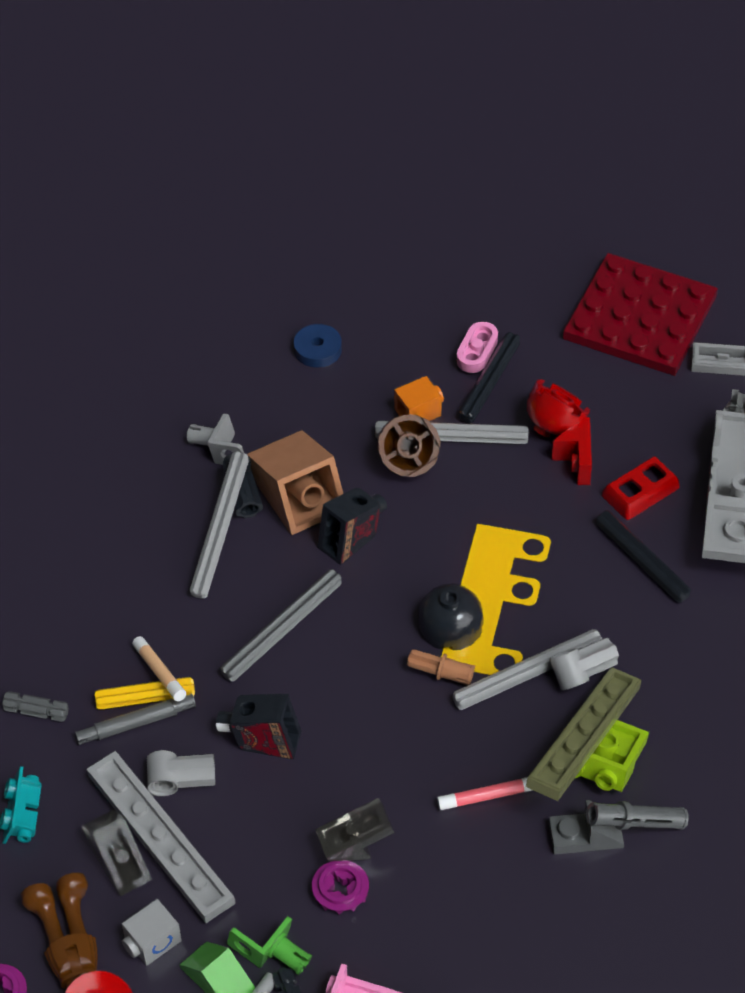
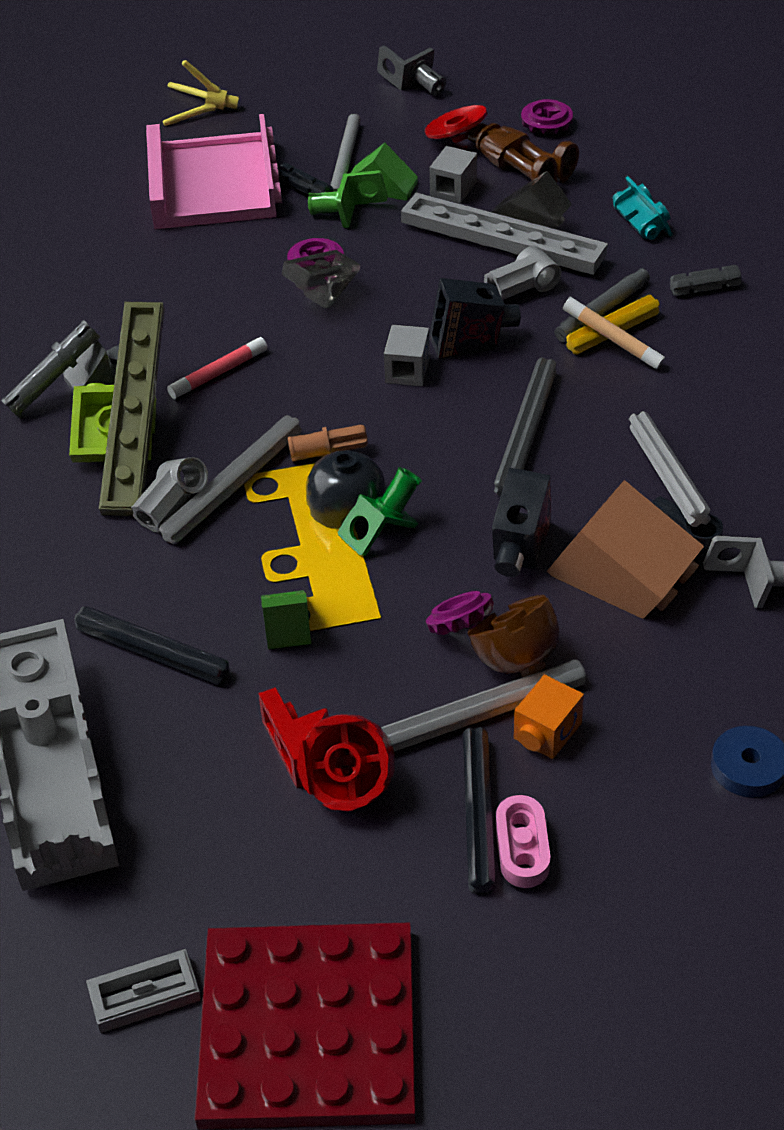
camera: 155 degrees right, 5 degrees down
(332, 722) = (406, 355): none -> light grey brick
(439, 573) = (381, 511): none -> green bracket
(443, 490) = (459, 612): none -> magenta gear
(544, 529) = (286, 619): none -> bright green slope
(650, 492) = (206, 738): red piece -> none

